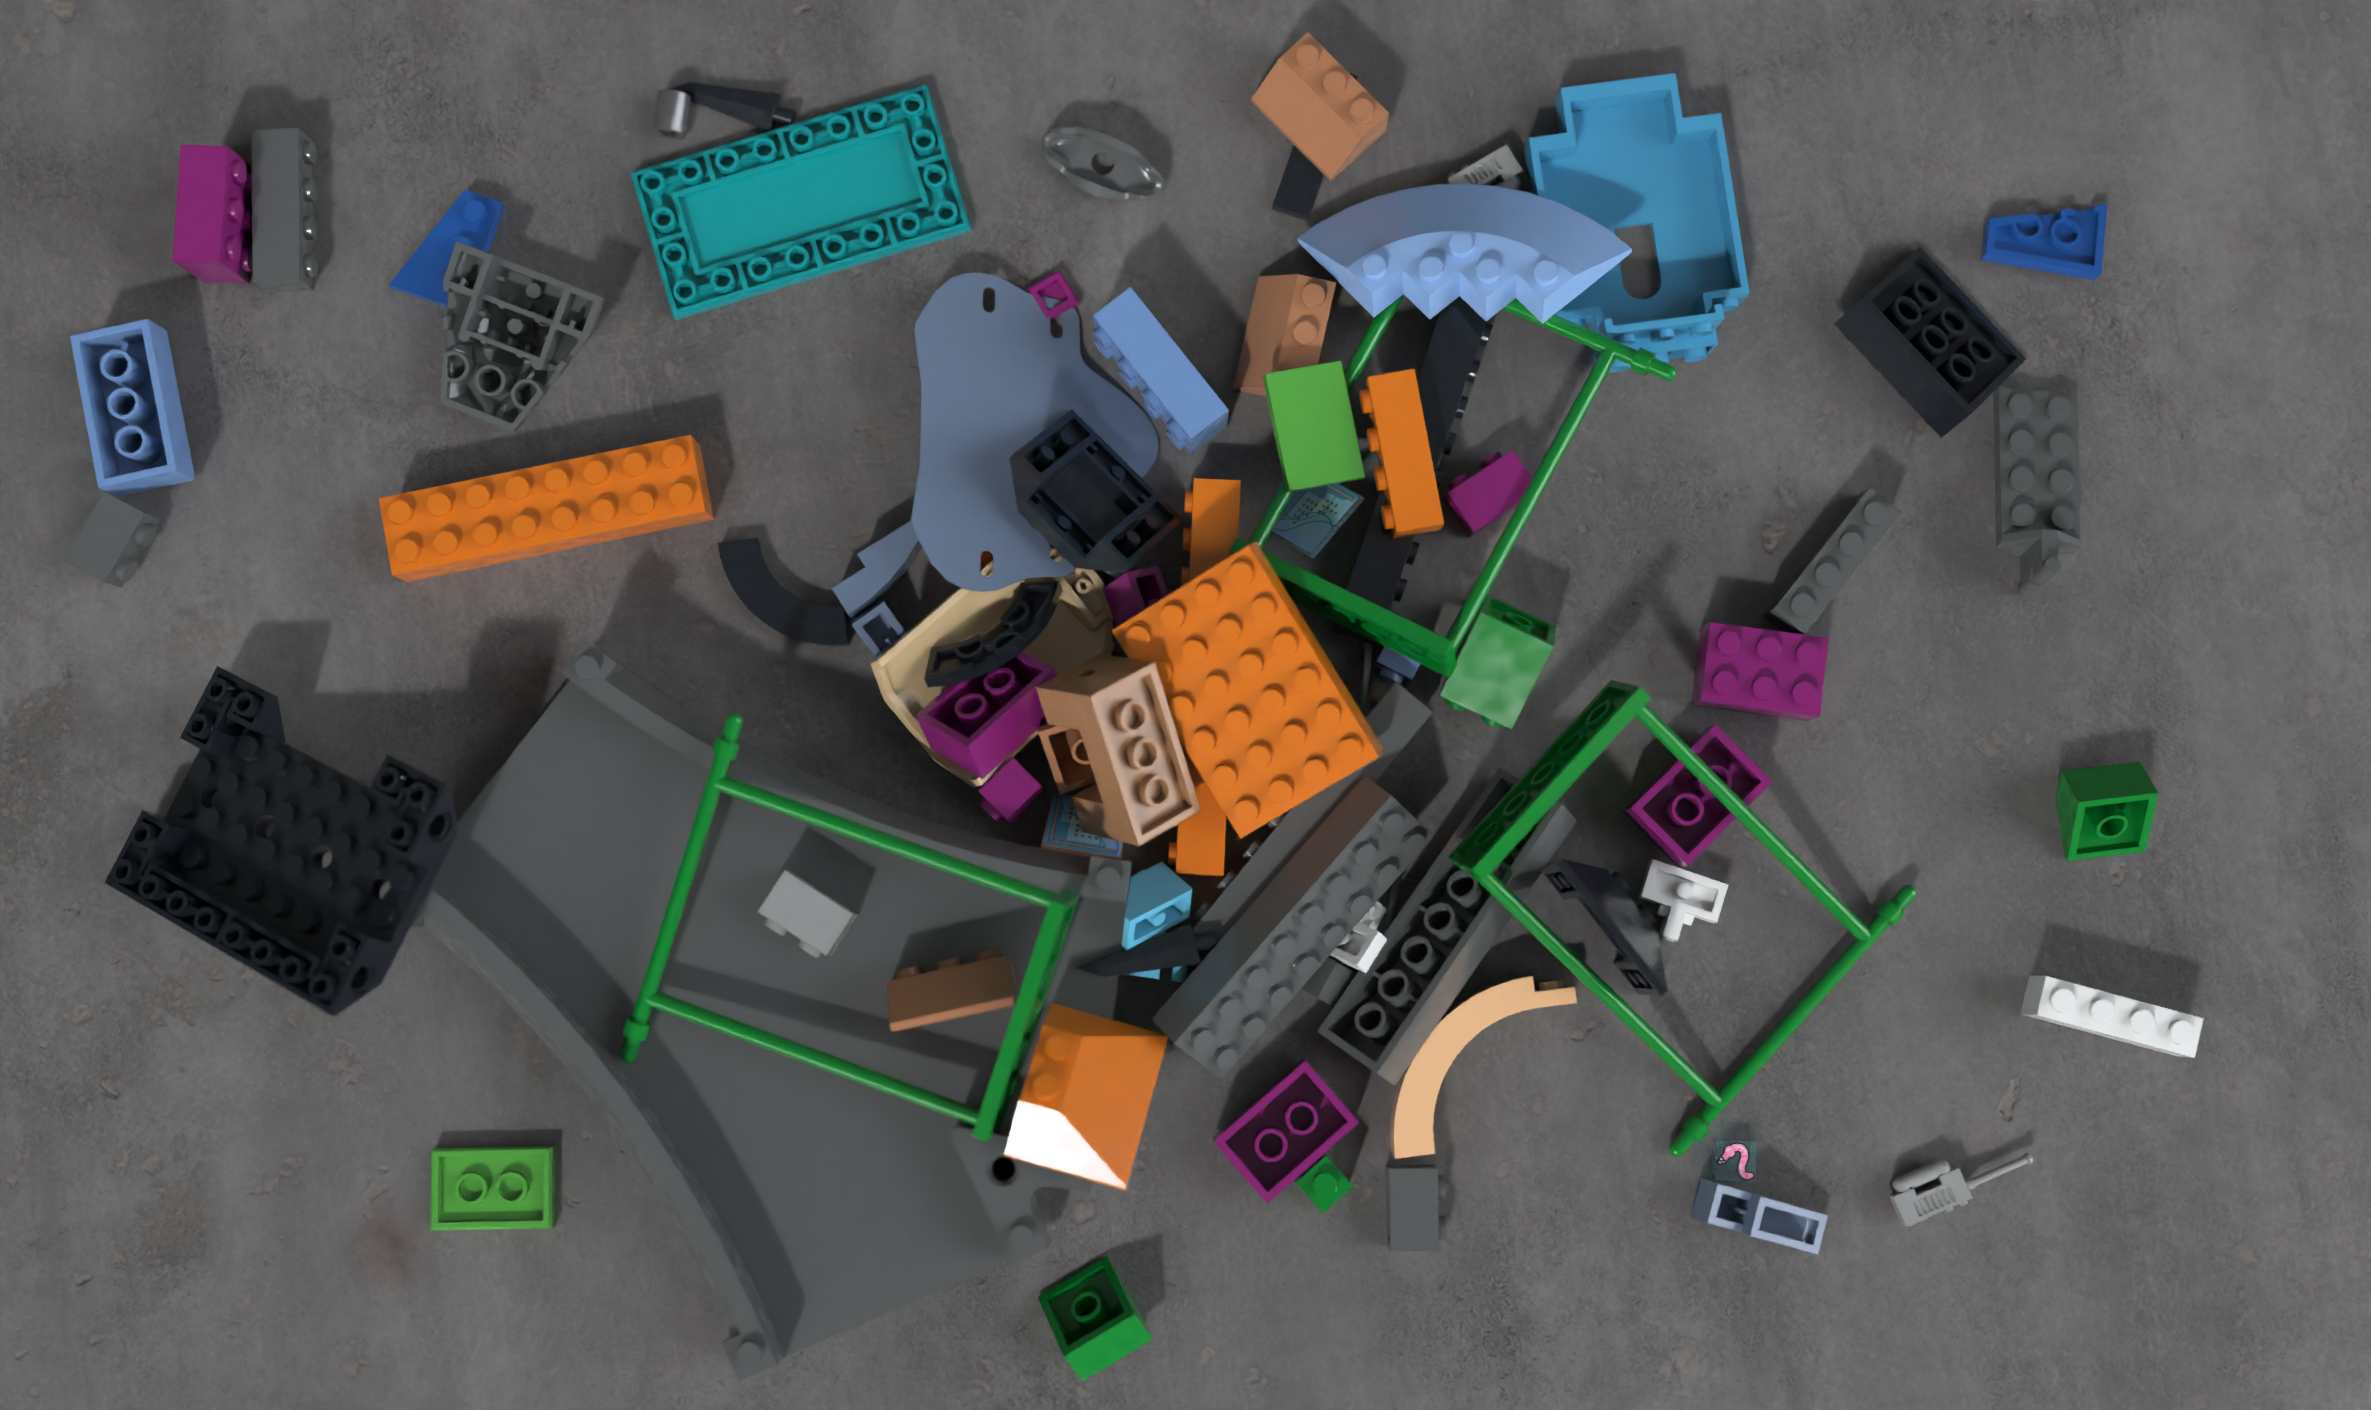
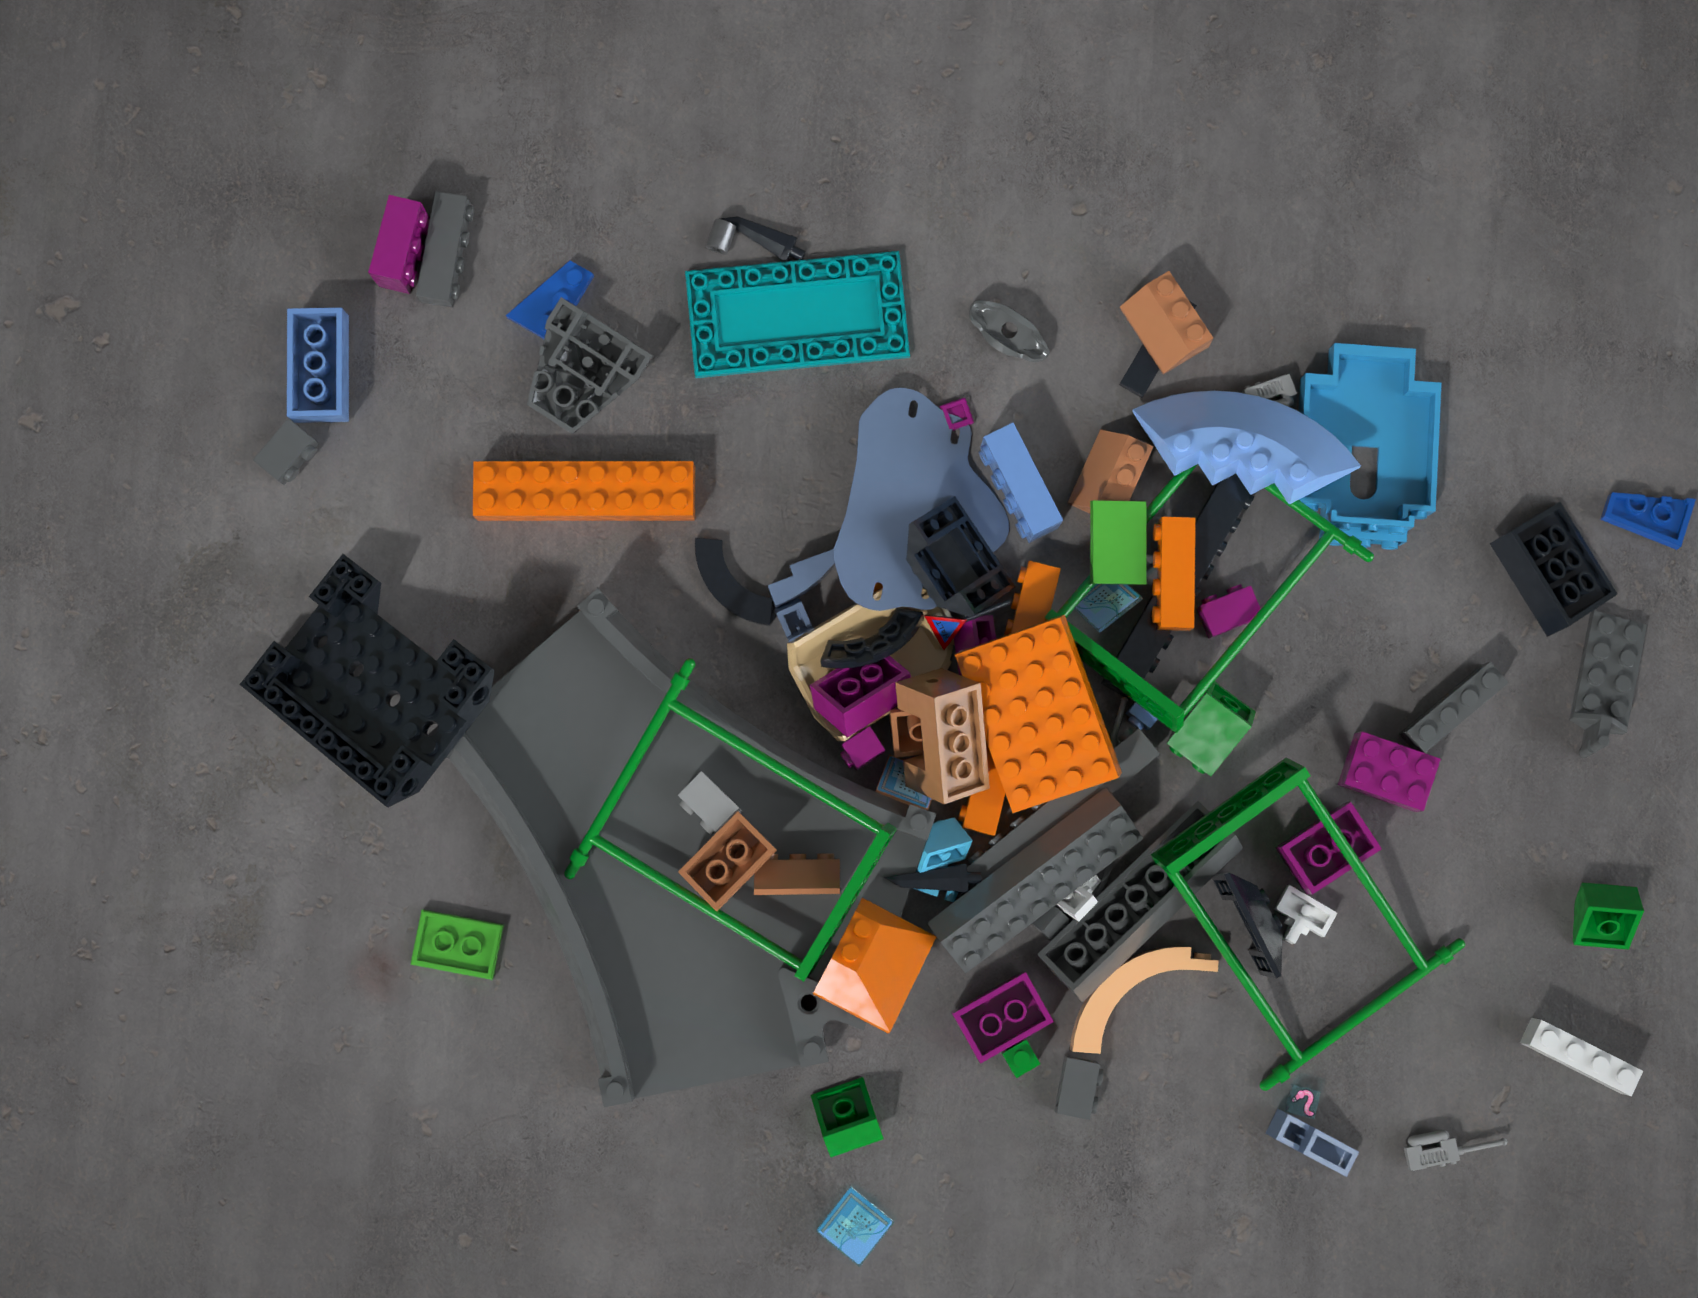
camera: 10 degrees right, 0 degrees up
(846, 990) = (727, 861): none -> nougat slope
(1097, 595) = (947, 627): none -> piece

